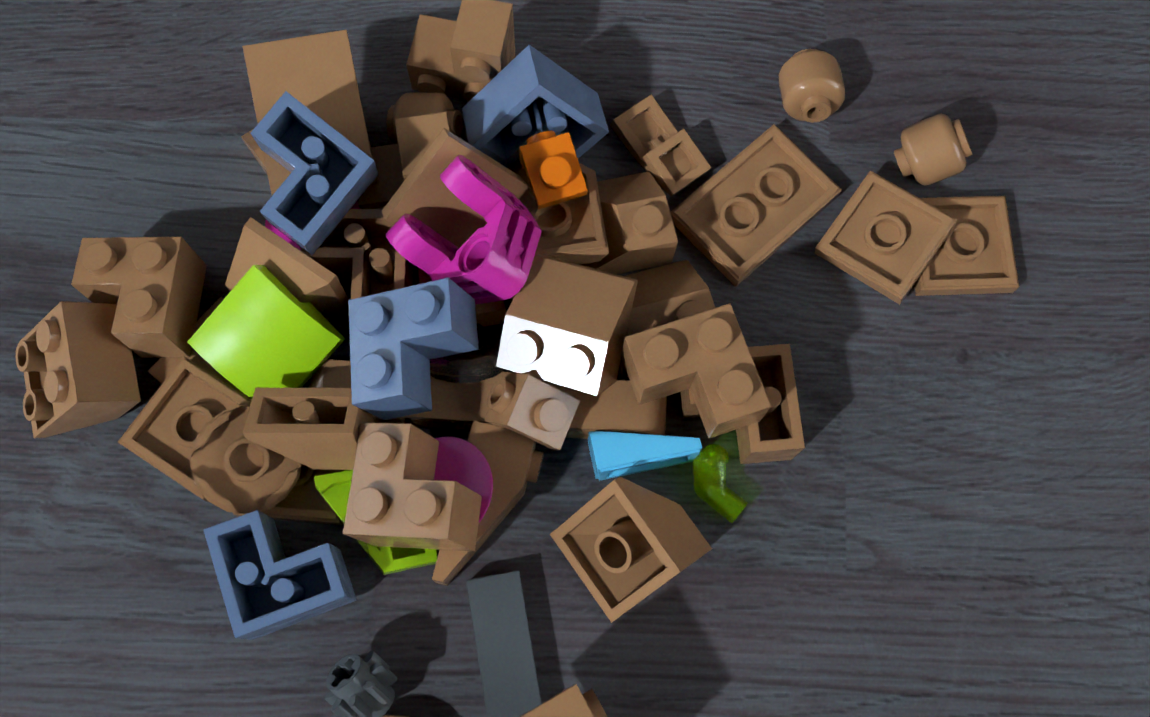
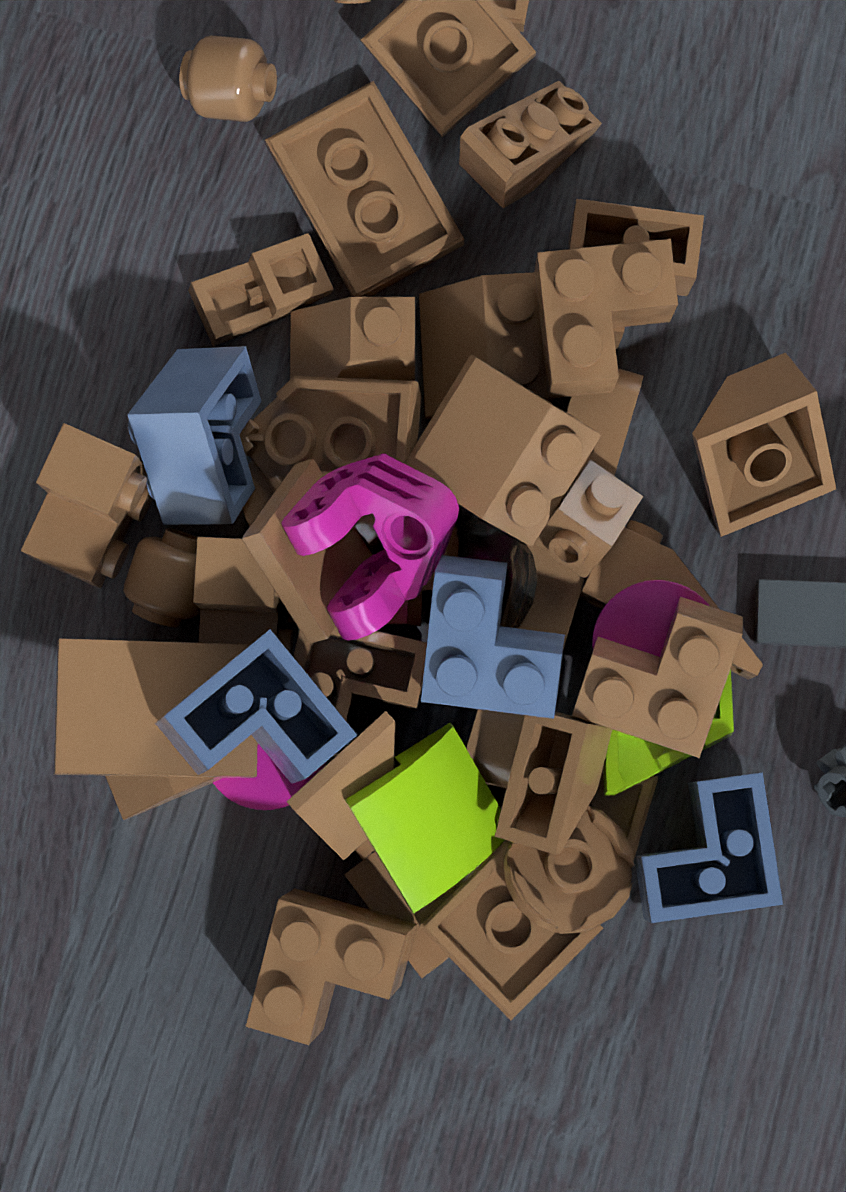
camera: 70 degrees left, 10 degrees up
(75, 370) = (402, 1063): medium nougat slope -> none
(552, 168) = (290, 425): orange bracket -> none
(631, 453) = (652, 425): medium azure slope -> none
(710, 482) = (705, 335): clear neon green arm -> none
(826, 305) = (526, 142): none -> medium nougat slope

